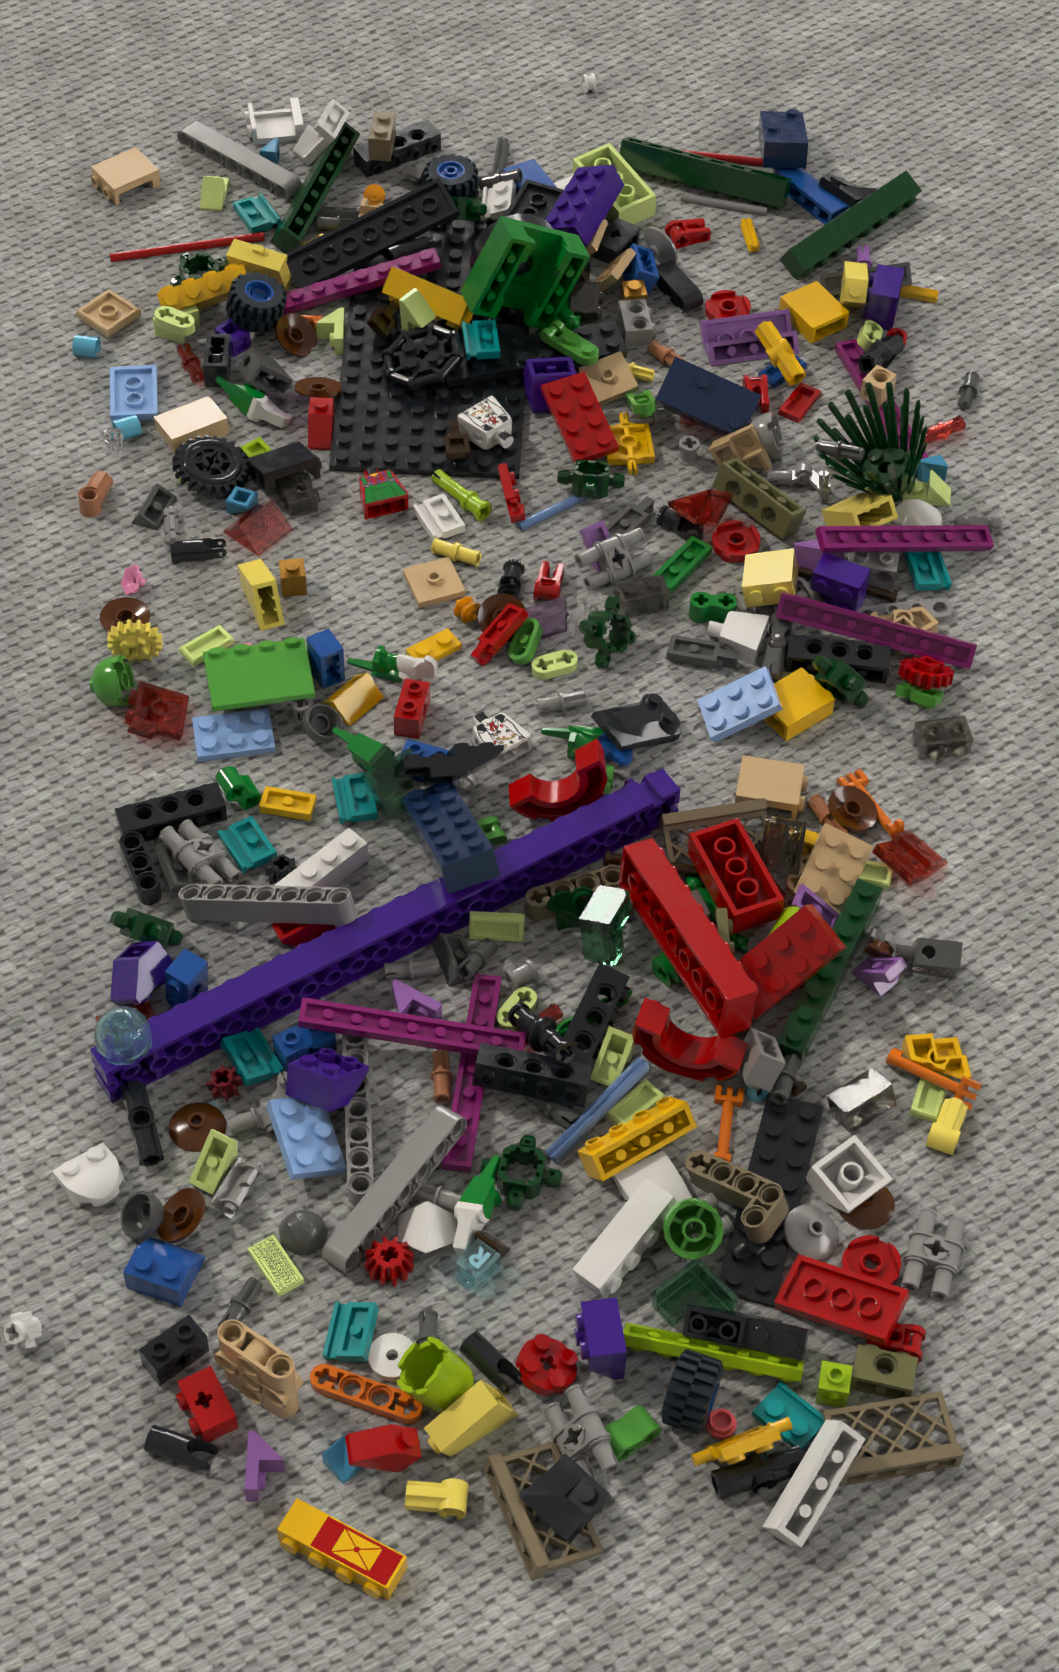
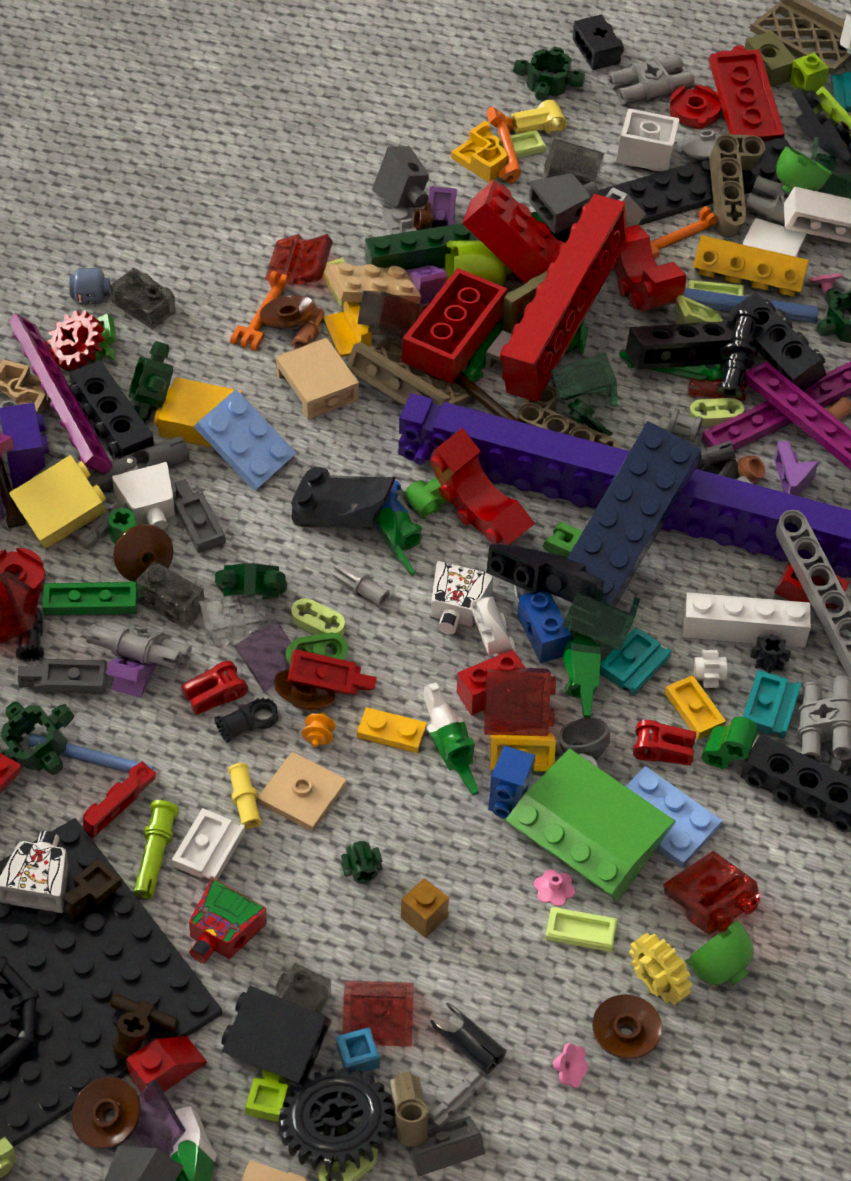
camera: 130 degrees left, 0 degrees up
(183, 495) = (410, 1109): none -> dark tan piece
(261, 593) = (471, 922): light yellow slope -> none
(279, 766) = (664, 744): none -> red piece
(304, 827) = (710, 668): none -> white gear
(345, 411) = (134, 1024): none -> dark brown piece
(353, 570) = (361, 862): none -> dark green gear
(377, 702) = (518, 702): none -> clear red plate
(442, 984) = (751, 468): none -> nougat plate
(447, 725) = (491, 626): none -> white slope
(579, 1190) = (826, 281): none -> bright pink plant
(685, 597) = (135, 544): none -> reddish brown dish
(802, 1022) = (560, 200): none -> dark grey torso
(985, 716) = (89, 286): none -> sand blue head
(999, 1195) = (544, 84): none -> dark green piece
(1031, 1241) = (597, 42): none -> black brick

